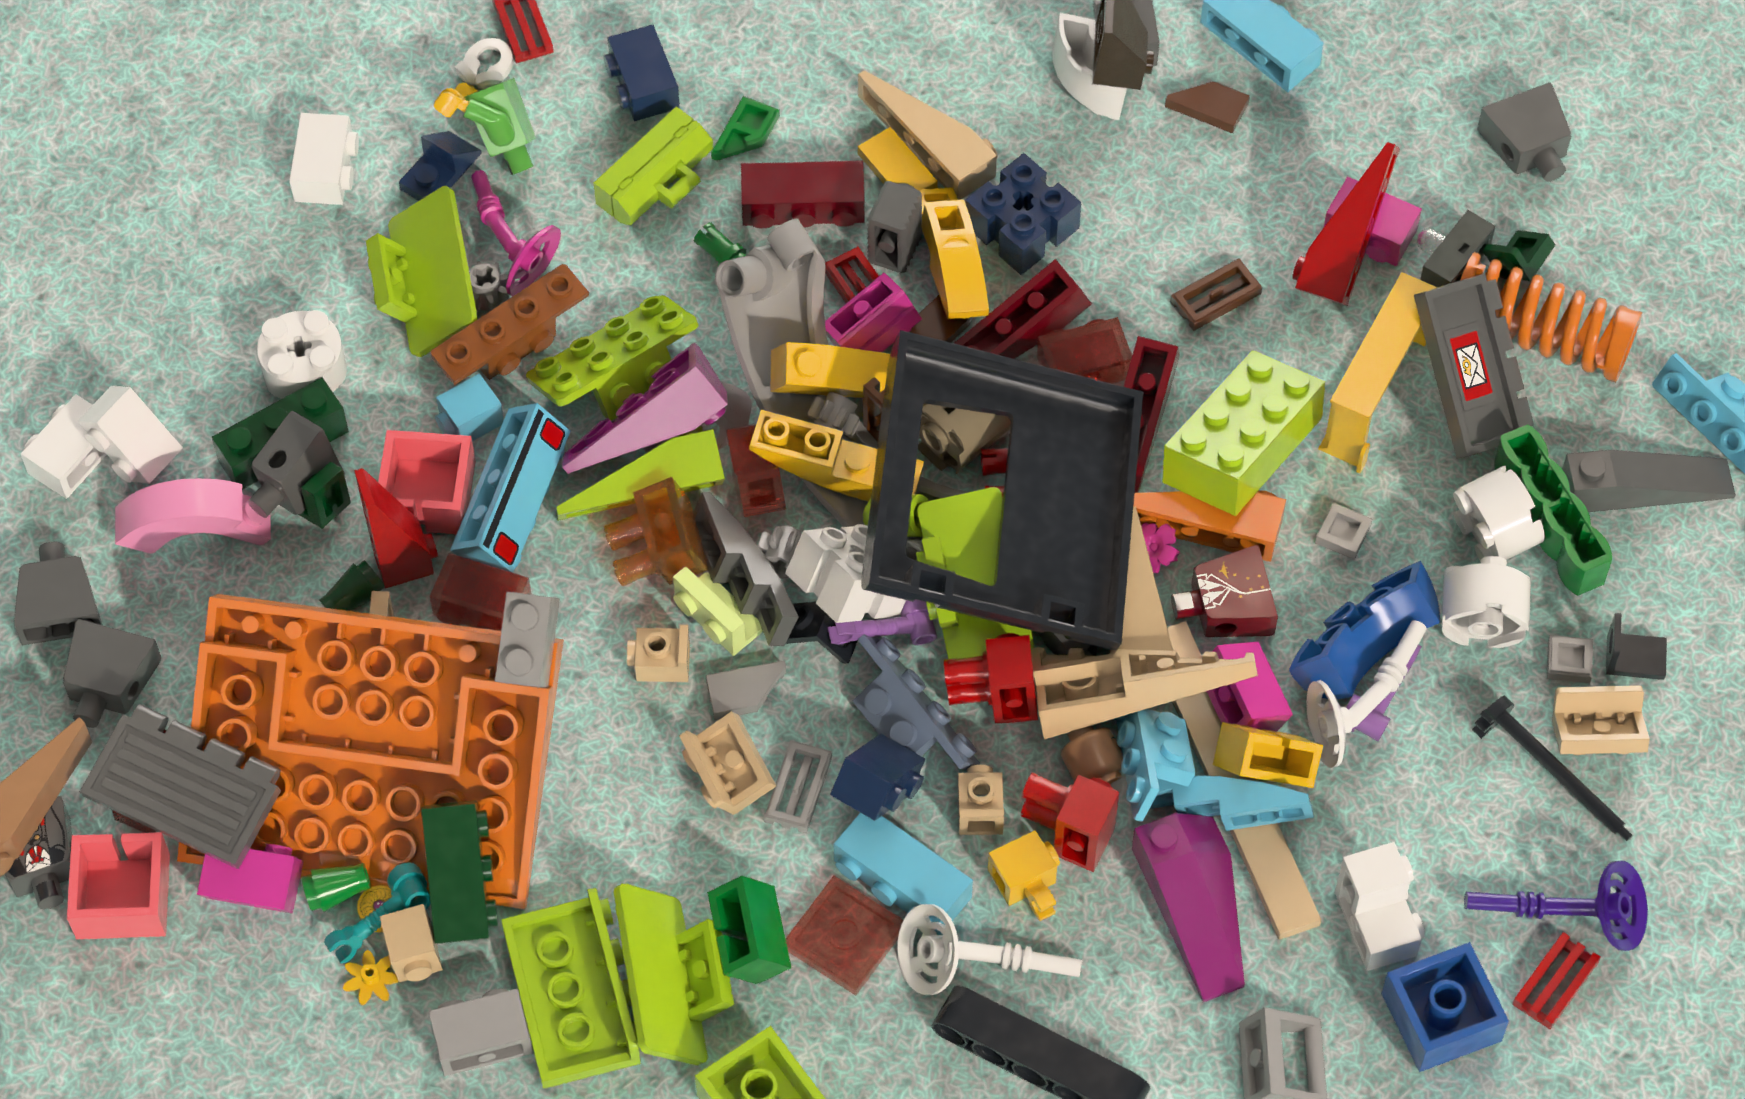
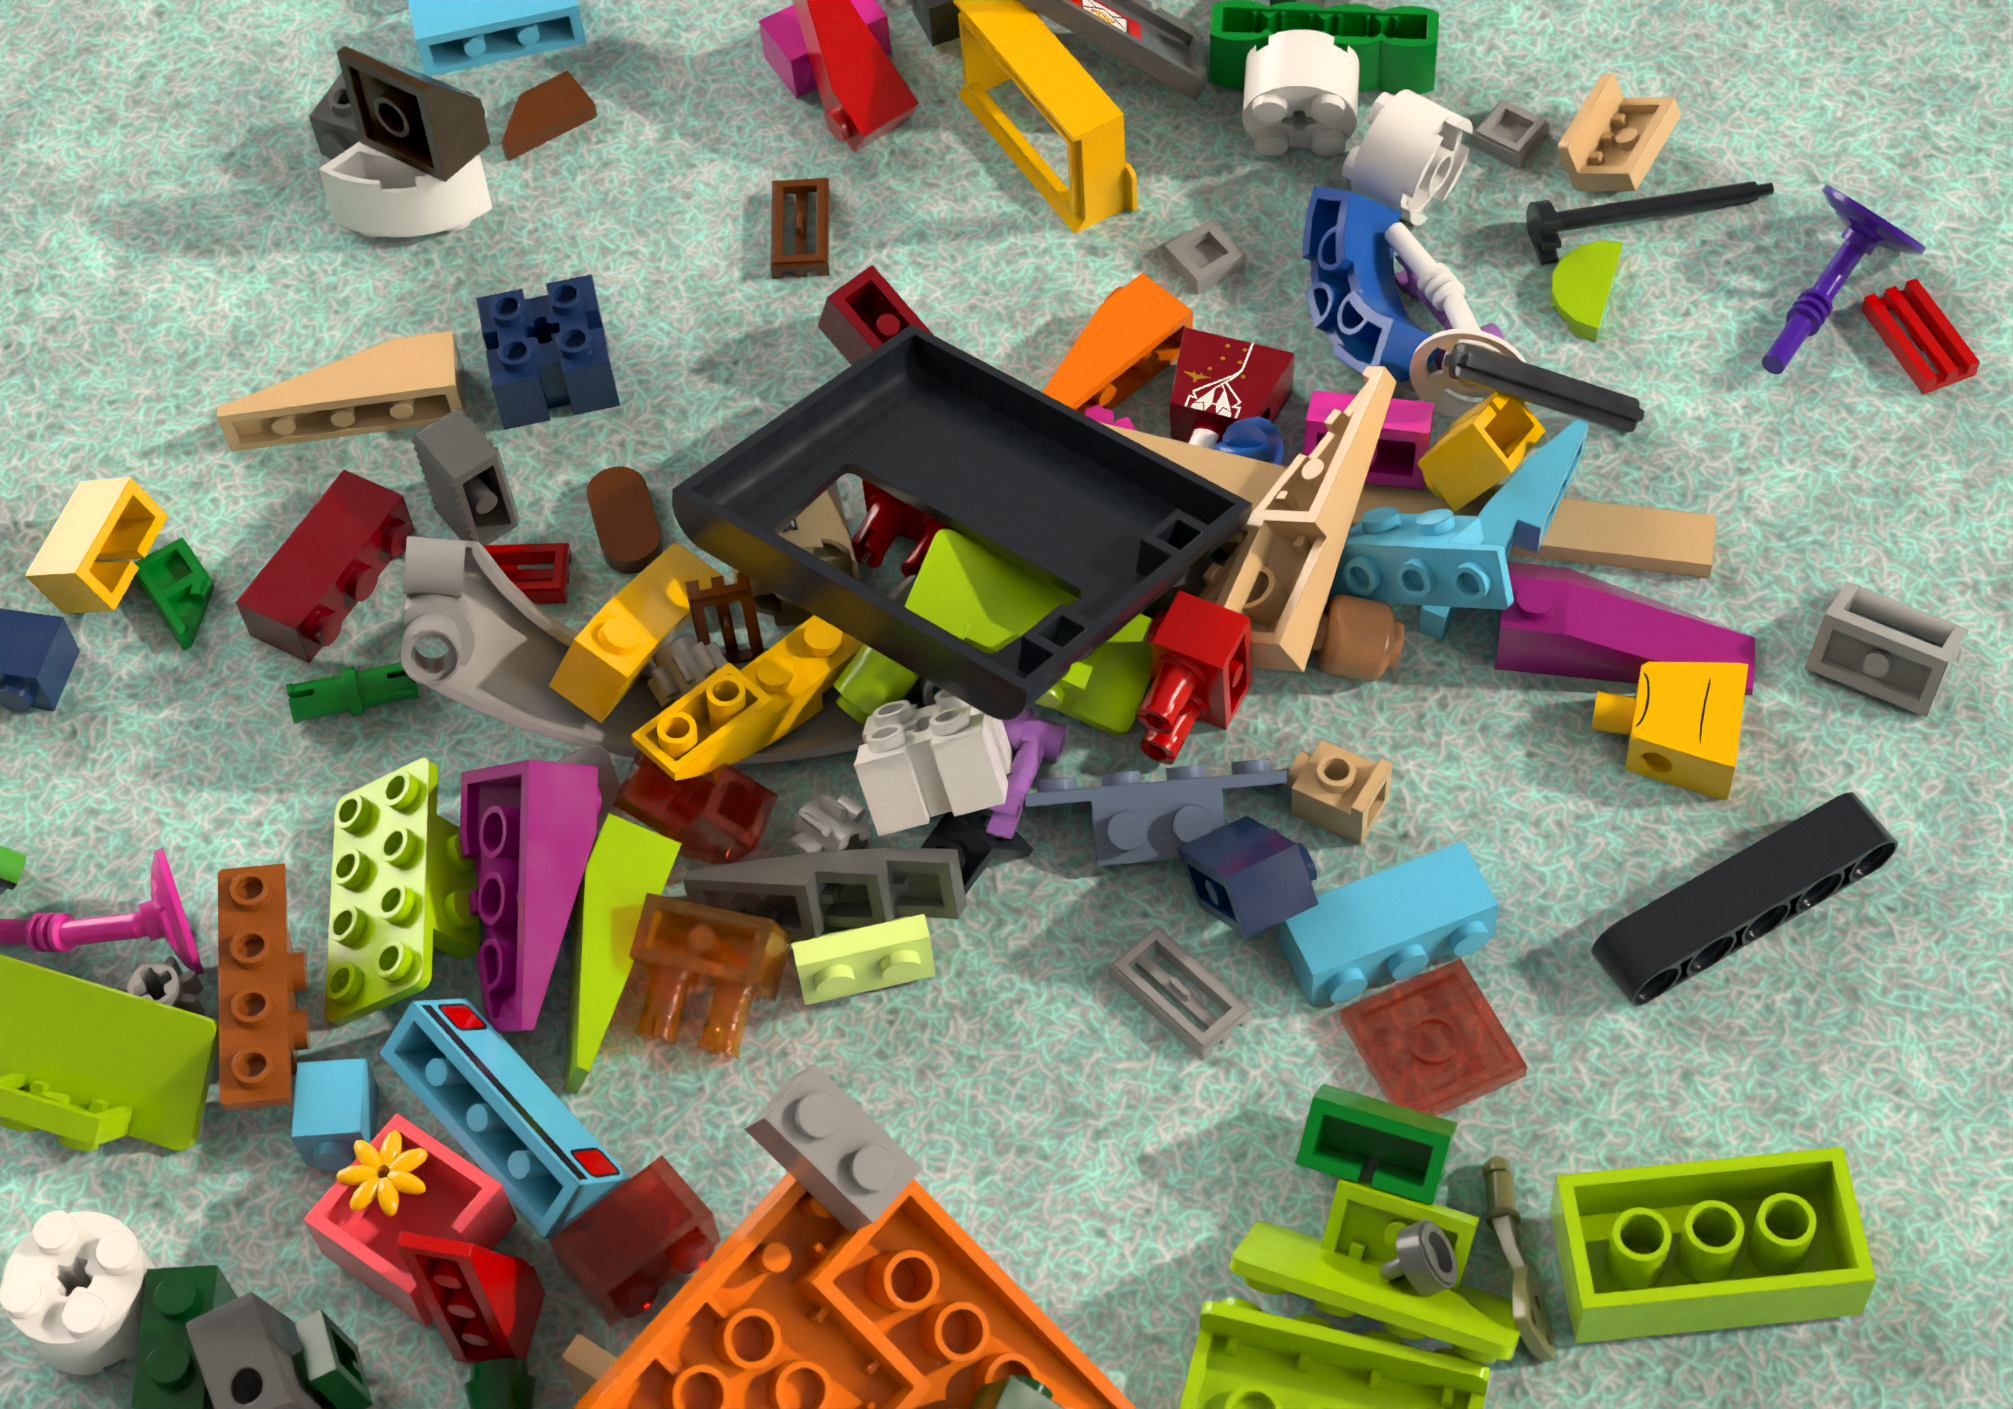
camera: 55 degrees left, 5 degrees down
(432, 450) = (383, 1173): none -> yellow plant
(651, 166) = (149, 731): lime piece -> none
(660, 654) = (883, 1077): tan brick -> none
(685, 984) = (1423, 1259): none -> dark grey tile
(703, 1052) = (1528, 1301): none -> olive piece
(727, 764) = (1100, 1051): tan bracket -> none
(743, 689) = (992, 989): light grey tile -> none
(754, 59) = (98, 524): none -> yellow piece
(873, 317) = (576, 560): dark pink brick -> none
(894, 161) = (373, 452): yellow tile -> none
(947, 948) = (1539, 926): white dish -> none
(954, 254) = (566, 440): yellow slope -> none
(1026, 871) = (1470, 789): yellow brick -> none
(1036, 308) = (692, 407): dark red slope -> none
(1078, 814) = (1447, 689): red brick -> none
(1090, 350) = (786, 369): clear red brick -> none
(1145, 967) = (1680, 723): none -> yellow torso
(1189, 629) = (1253, 439): none -> blue tile
(1243, 432) = (1029, 266): lime brick -> none
(1333, 768) = (1543, 387): none -> black axle
(1373, 901) = (1740, 450): white brick -> none
(1444, 1007) = (1915, 442): blue brick -> none
(1467, 761) = (1584, 284): none -> lime tile
(1635, 654) = (1544, 71): black bracket -> none

